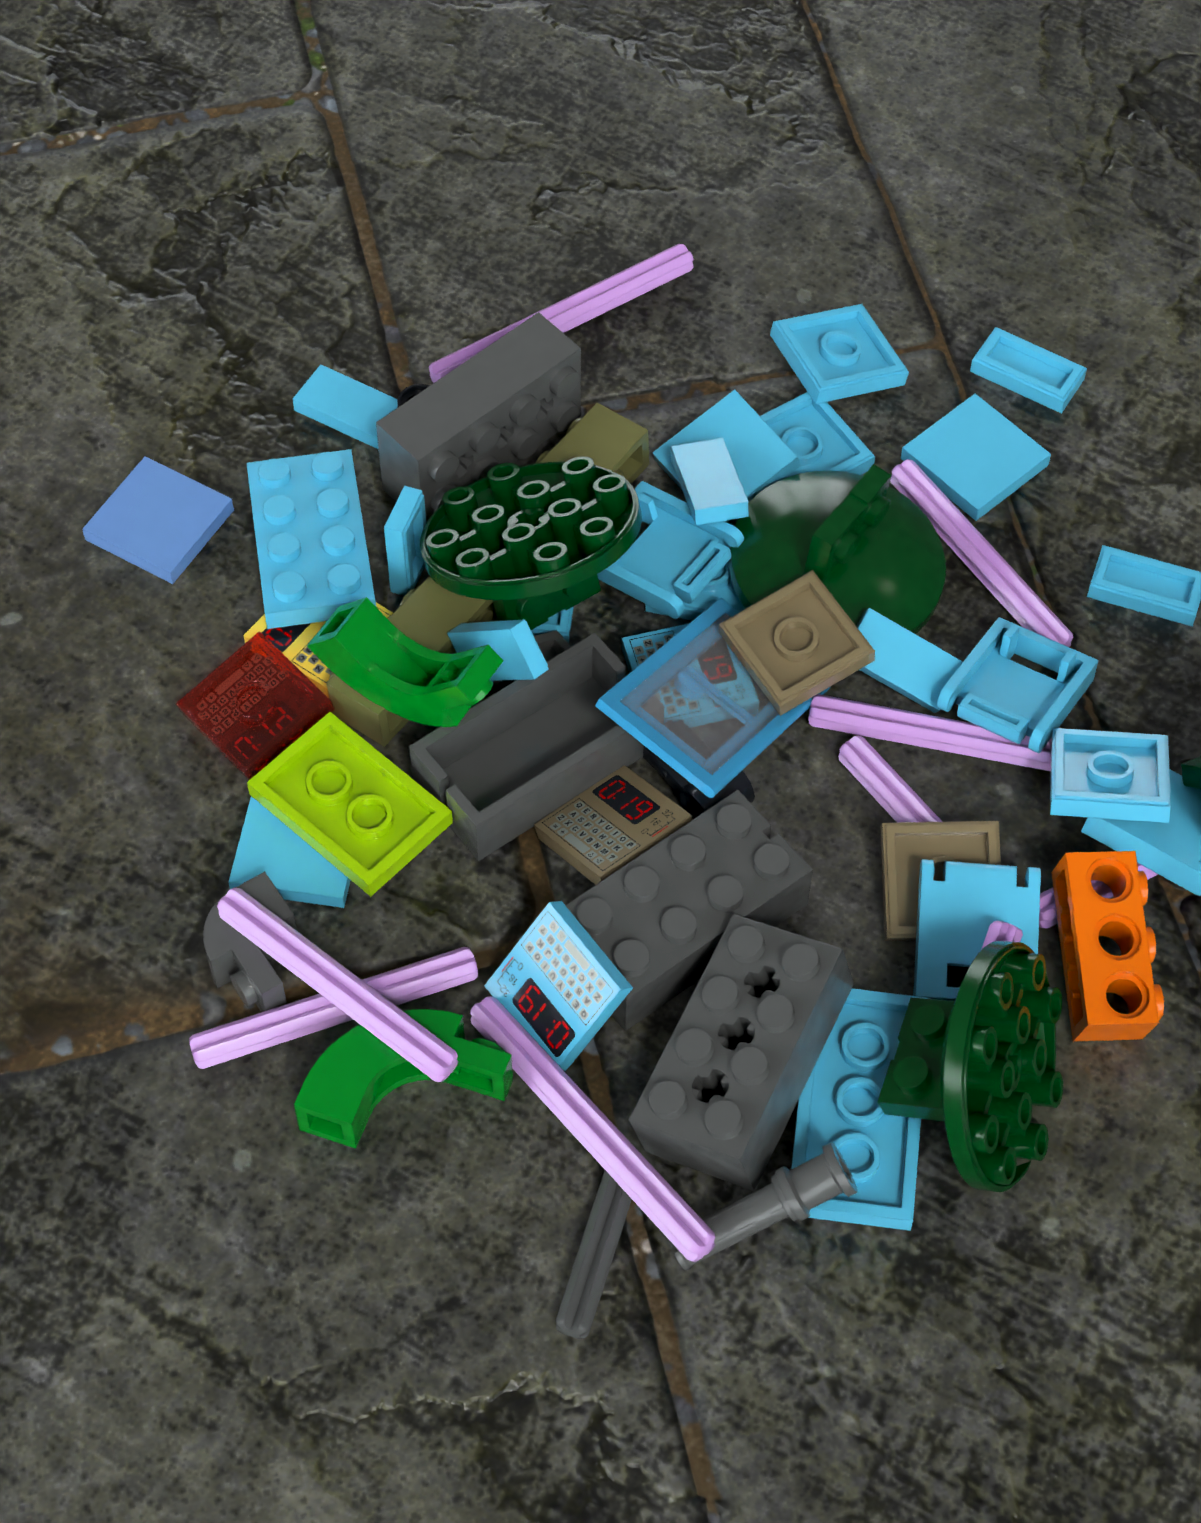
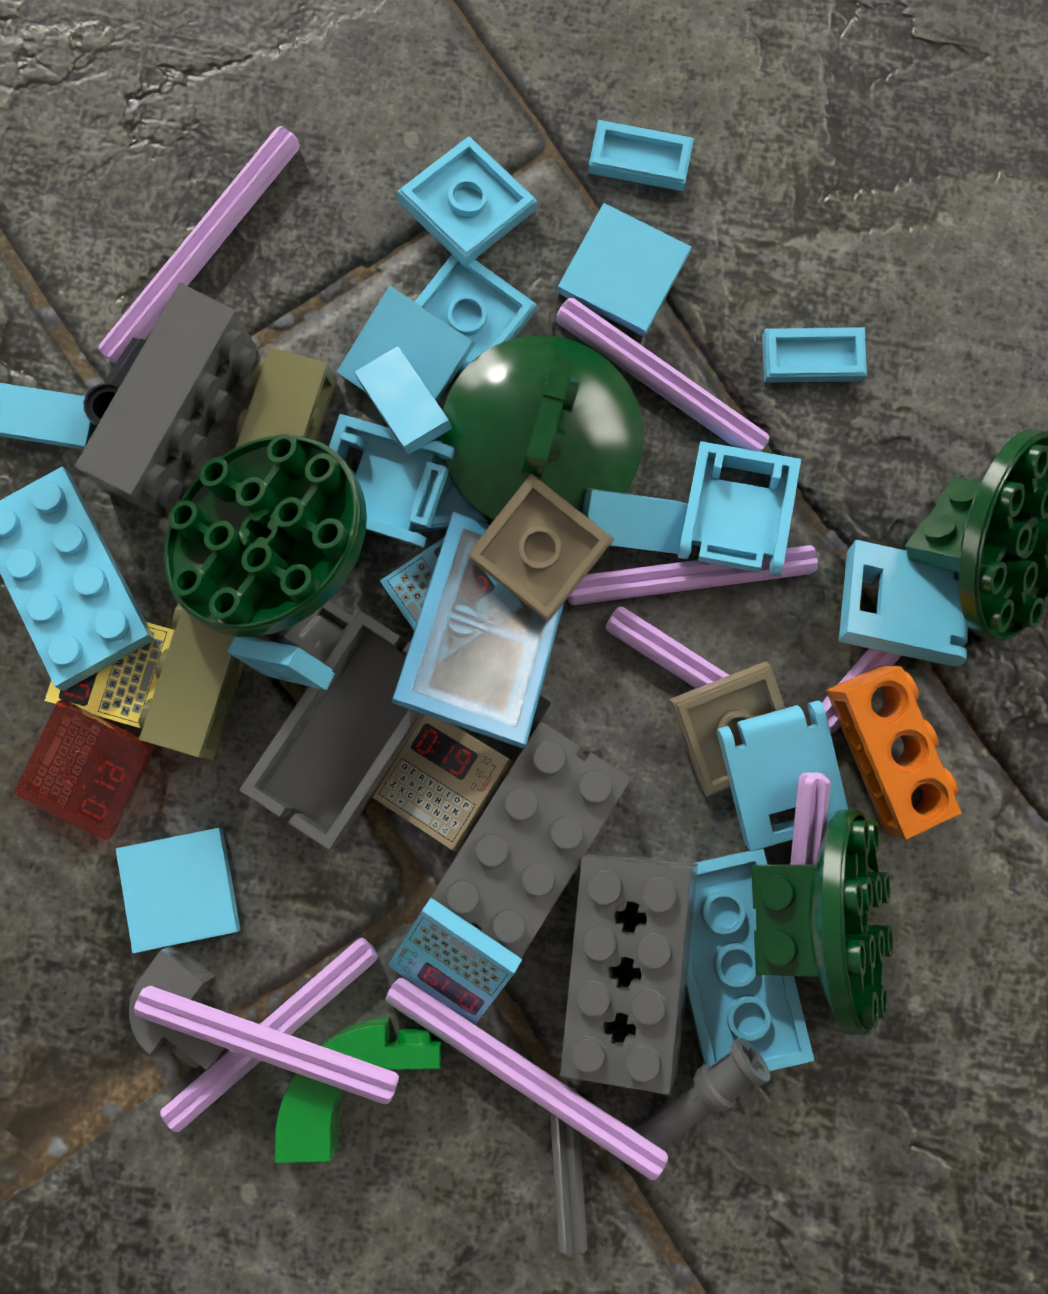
camera: 20 degrees left, 25 degrees up
(350, 803) = (206, 848): lime plate -> none
(399, 672) = (202, 719): green arch -> none
(403, 540) = (147, 562): medium azure tile -> none
(1110, 775) = (852, 585): medium azure tile -> none

